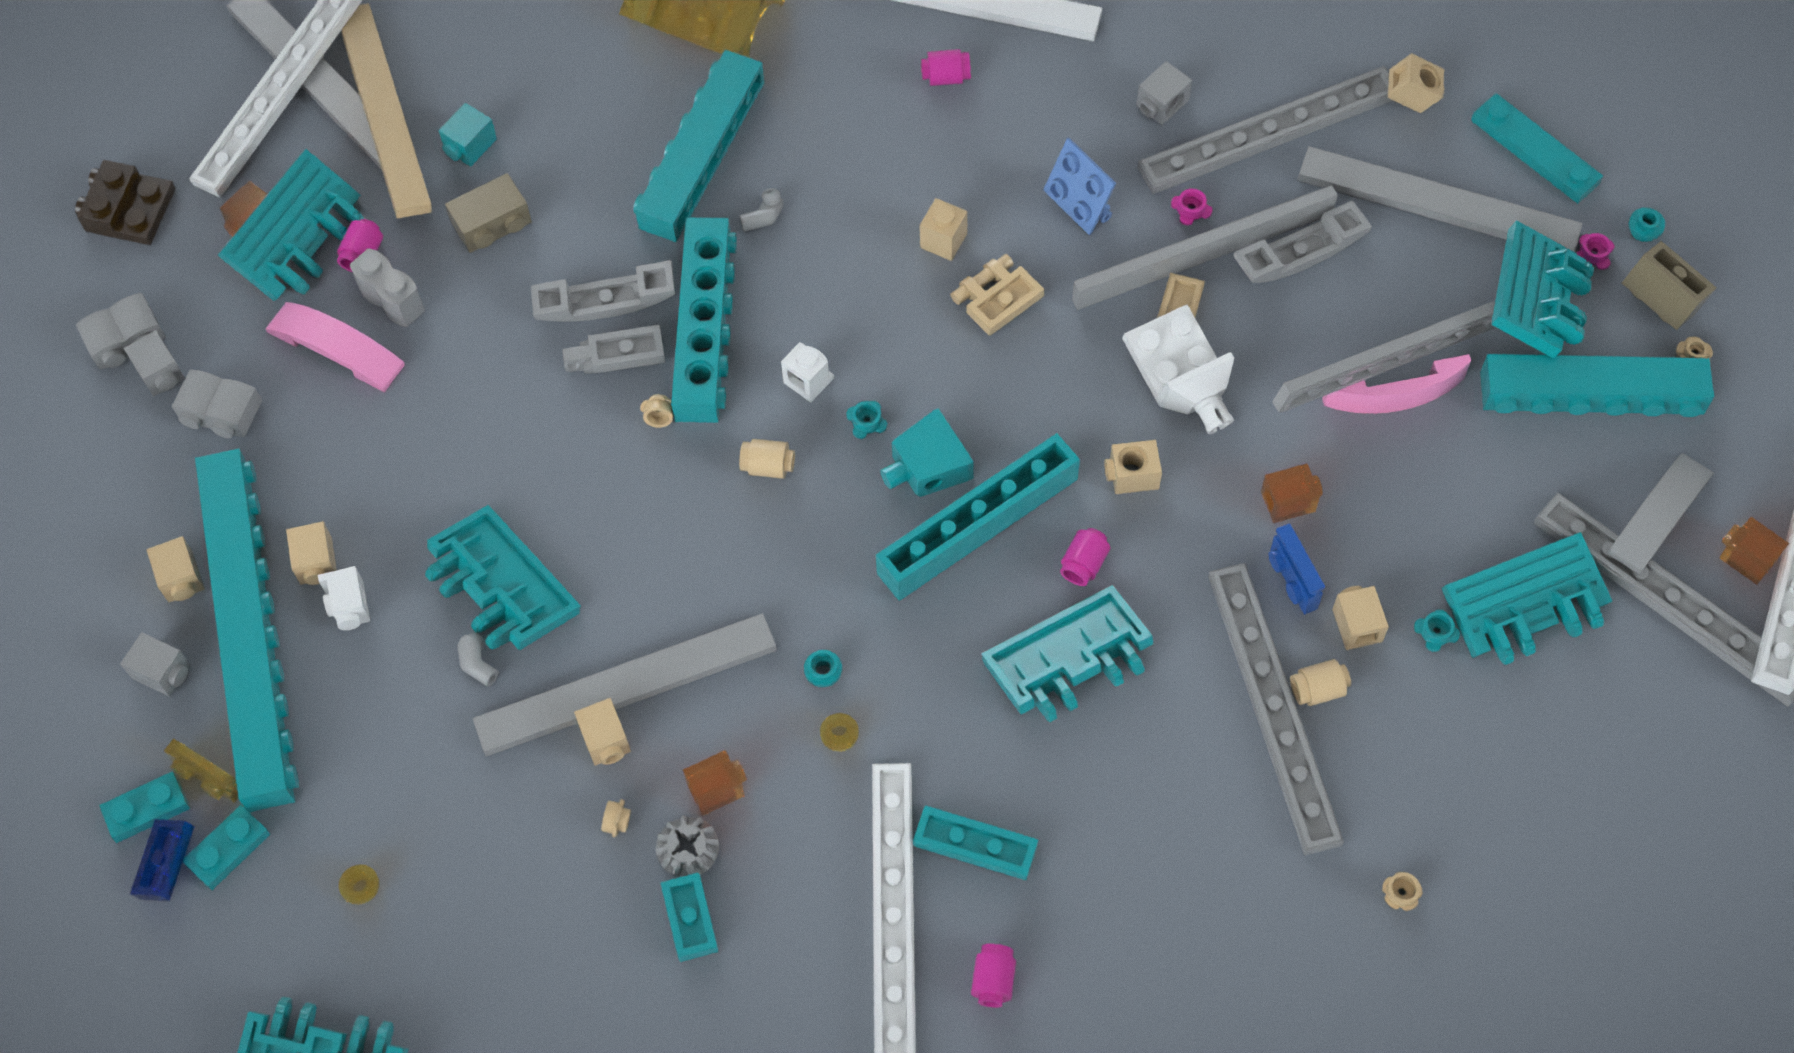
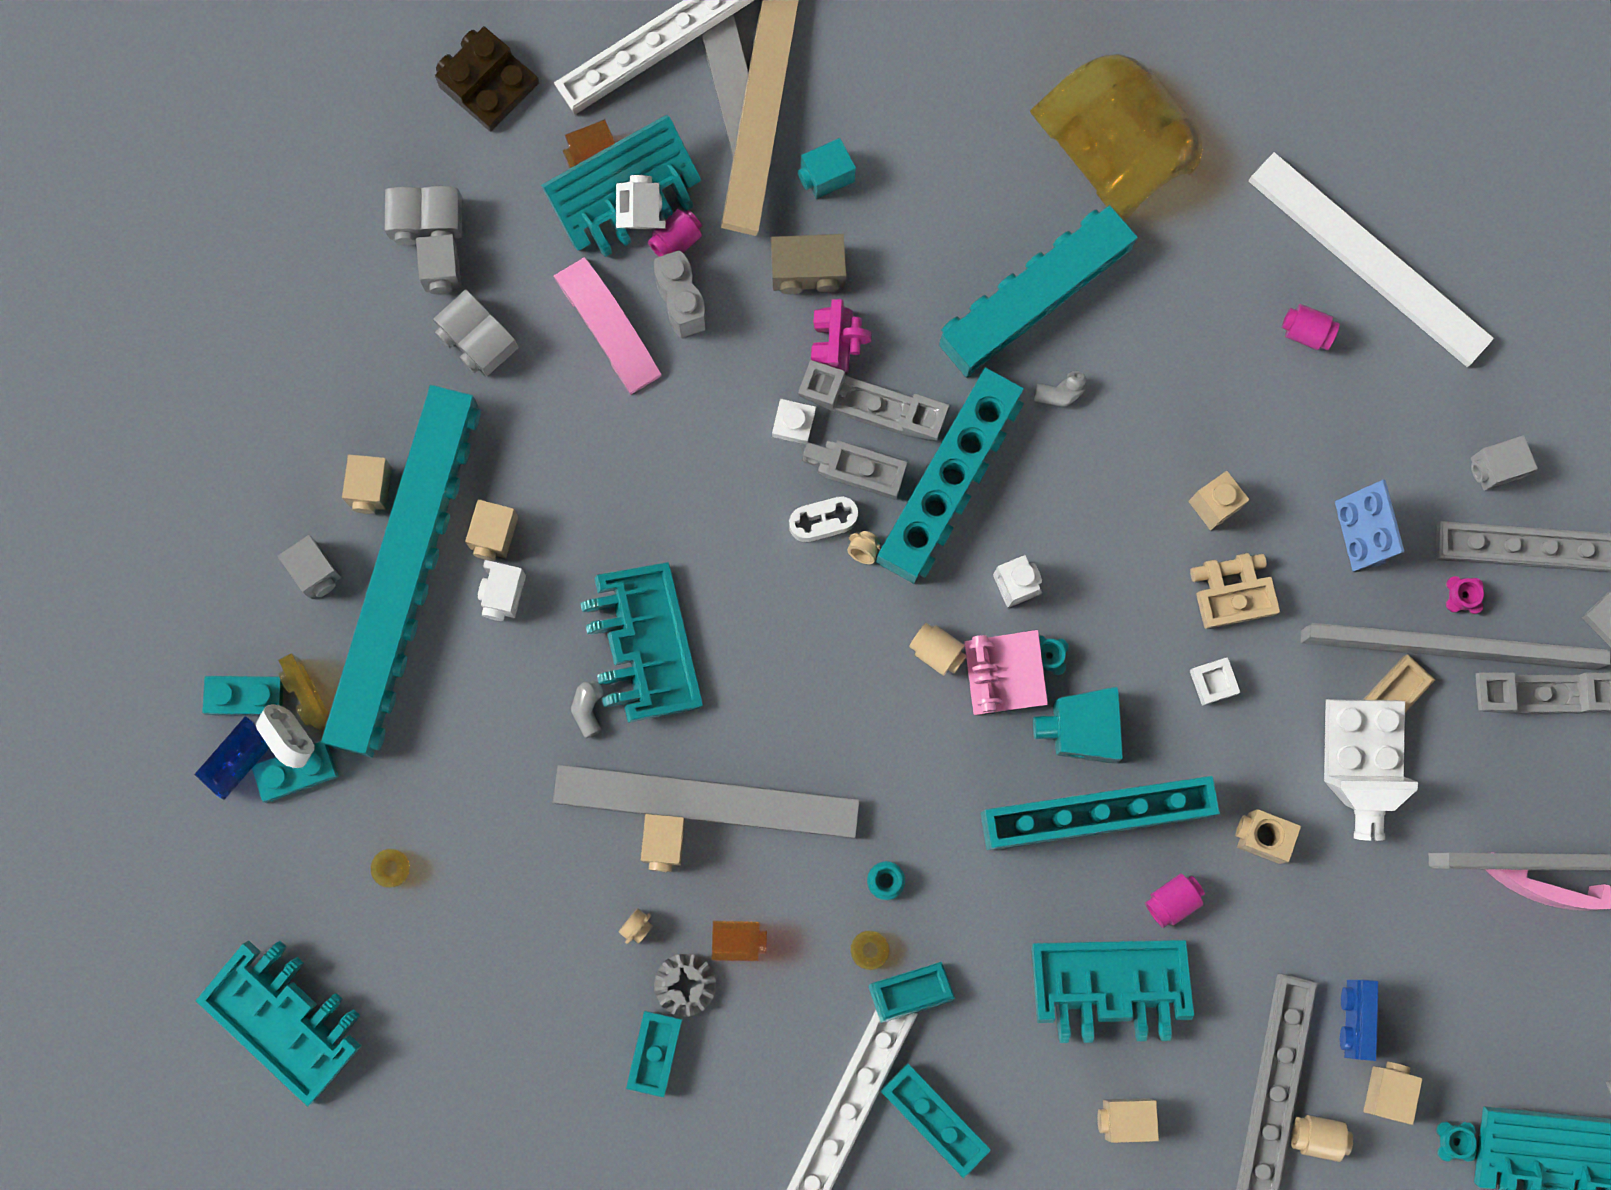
camera: 20 degrees right, 15 degrees up
(201, 812) = (285, 736): none -> white beam
(314, 230) = (638, 204): none -> white brick
(542, 343) = (793, 421): none -> white plate
(547, 252) = (844, 335): none -> dark pink hips
(609, 406) = (821, 510): none -> white beam
(835, 448) = (1005, 672): none -> bright pink hinge
(895, 746) = (911, 992): none -> teal tile
(1020, 370) = (1214, 681): none -> white plate
(1146, 753) = (1129, 1120): none -> tan brick
(1291, 492) = (1398, 939): clear orange brick -> none

